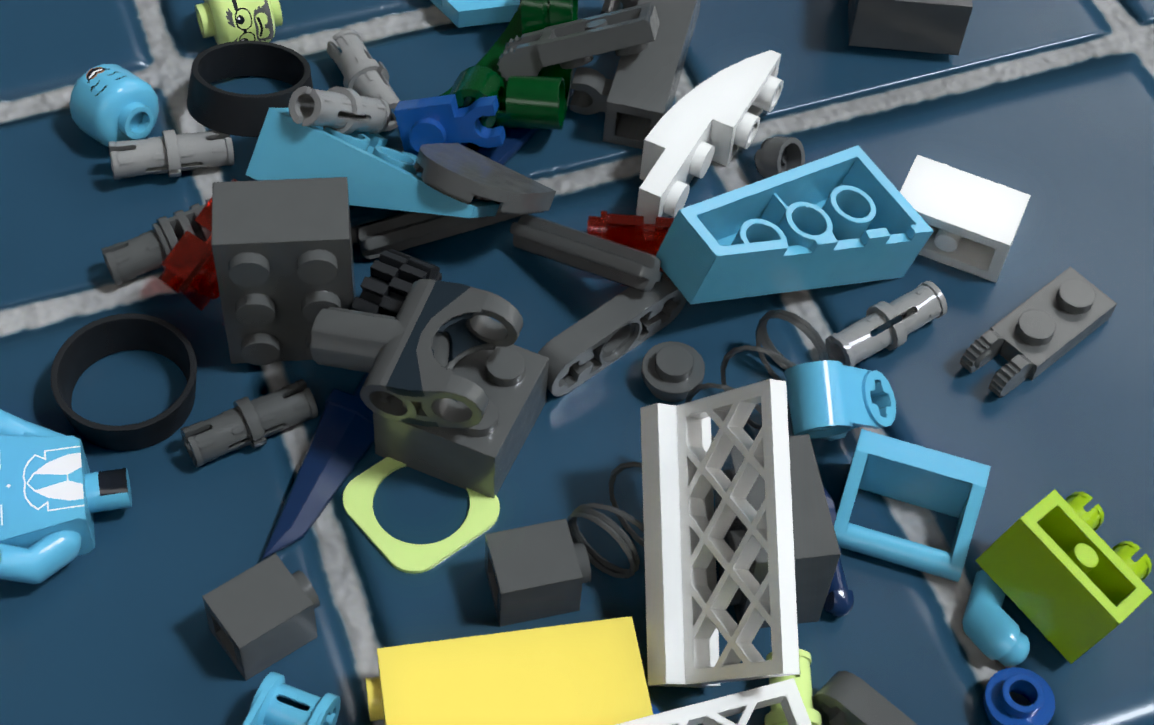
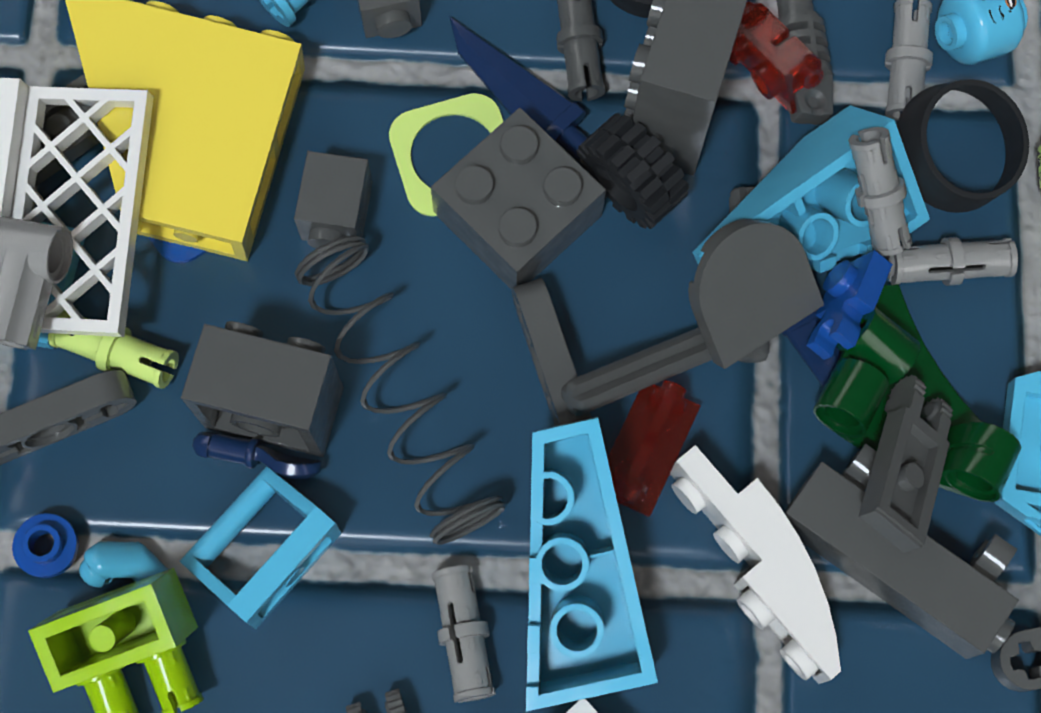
camera: 115 degrees right, 20 degrees up
(416, 350) = (541, 138): dark grey connector -> none
(672, 370) = (494, 408): dark grey plate -> none
(687, 537) = (259, 309): white fence -> none
(779, 155) = (699, 641): dark grey hinge -> none
(835, 398) = (370, 513): medium azure piece -> none

